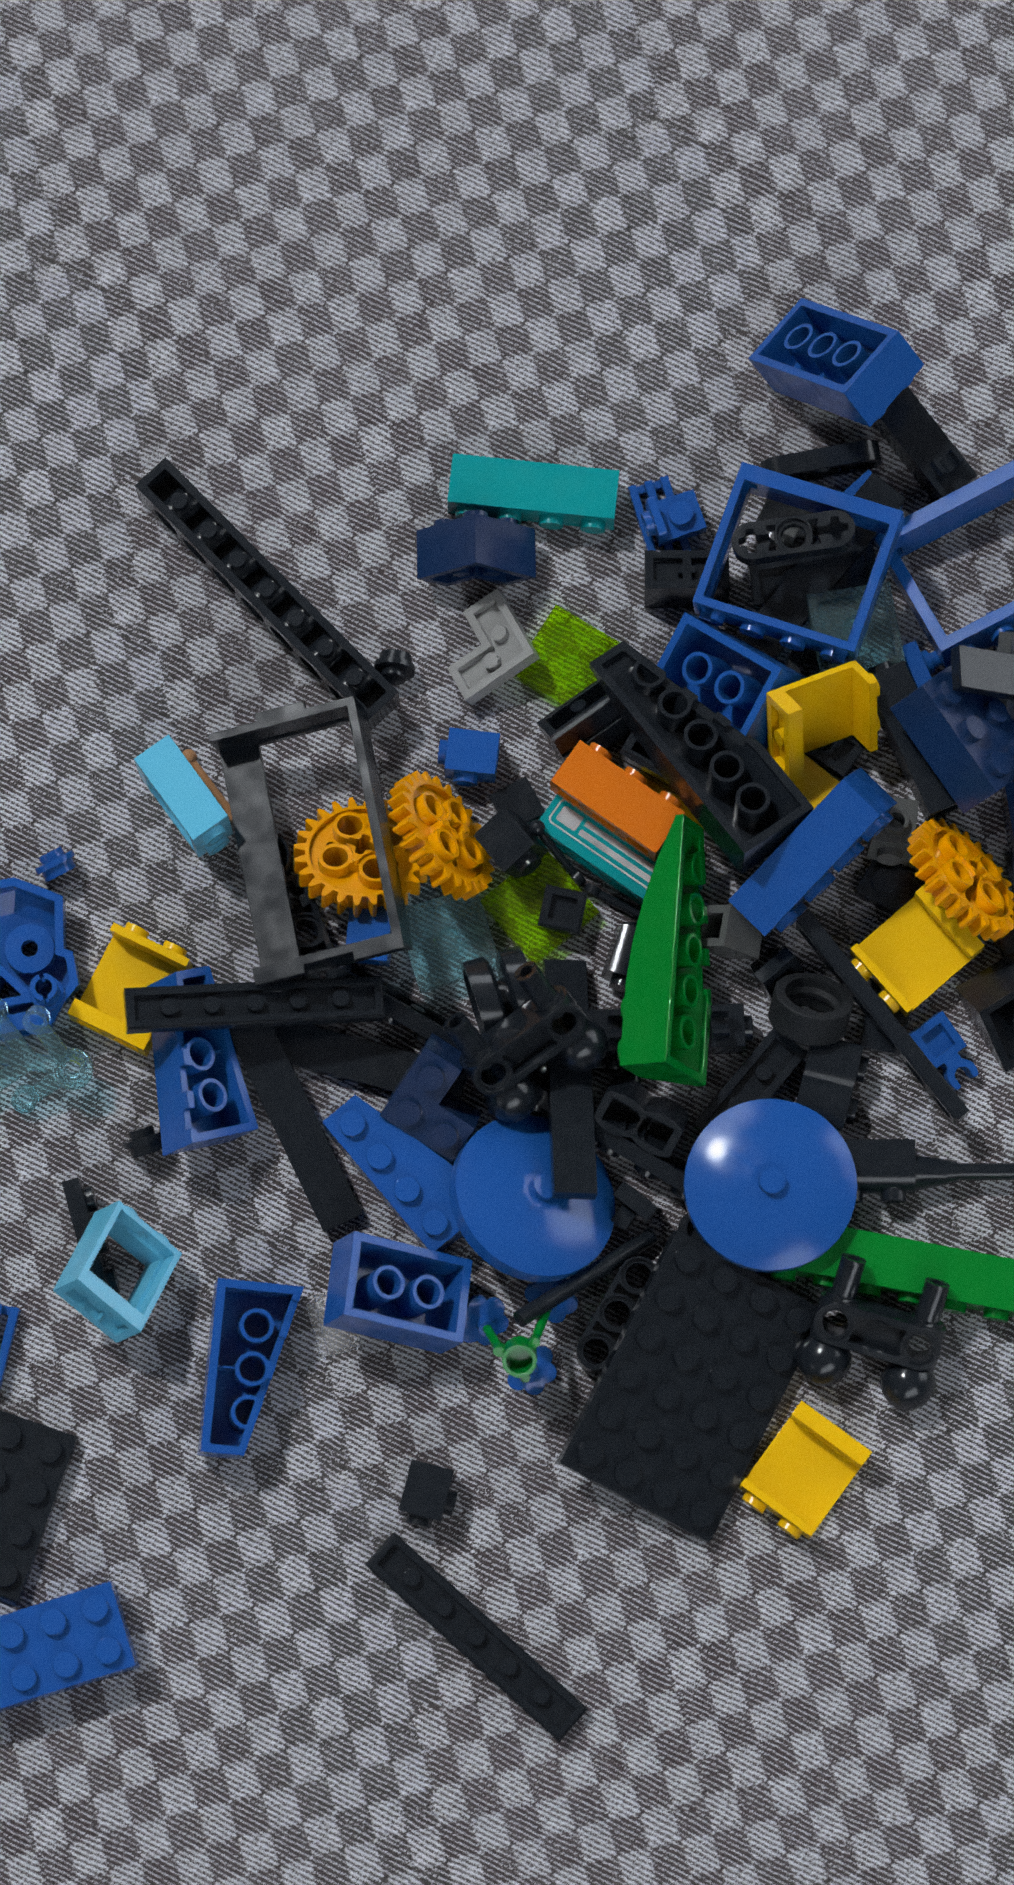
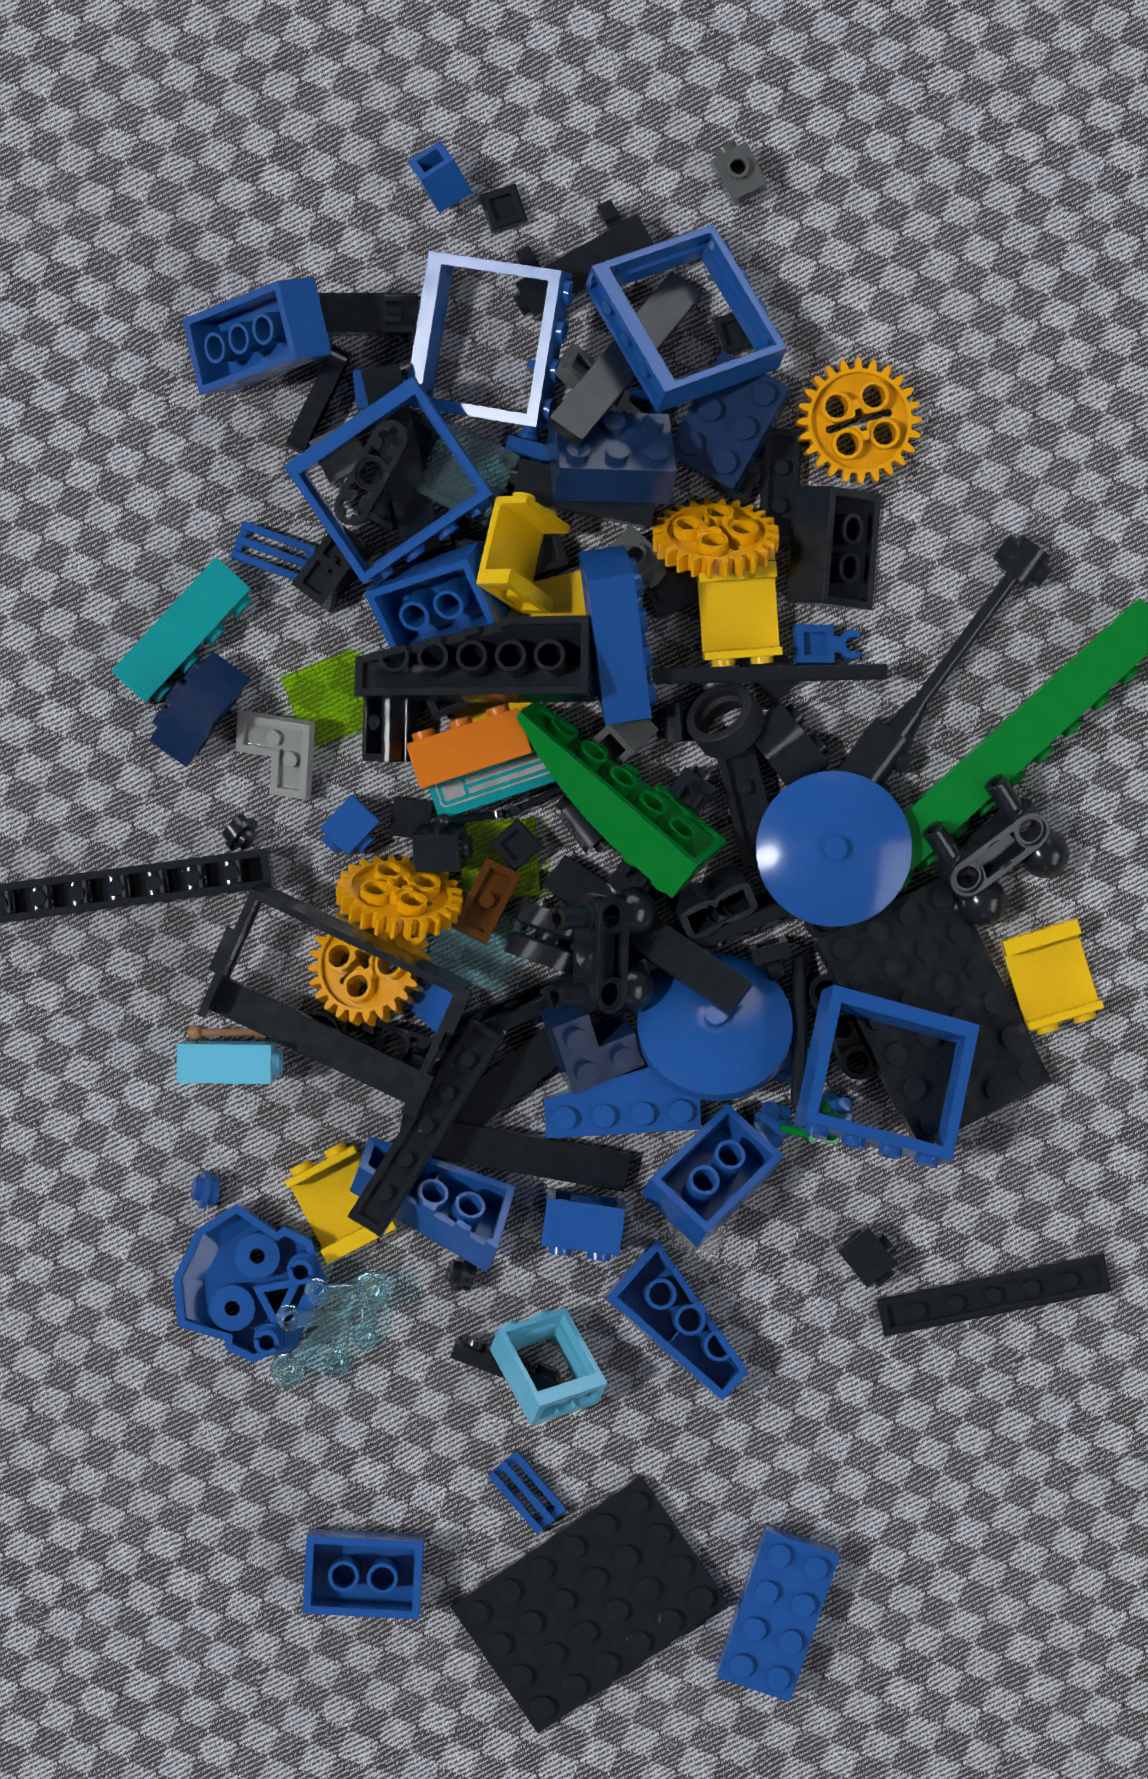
camera: 55 degrees left, 10 degrees up
(274, 1213) = (583, 1224): none -> blue brick
(493, 918) = (486, 901): none -> reddish brown plate
(666, 1352) = (899, 1015): none -> blue window
(673, 518) = (280, 542): blue bracket -> none

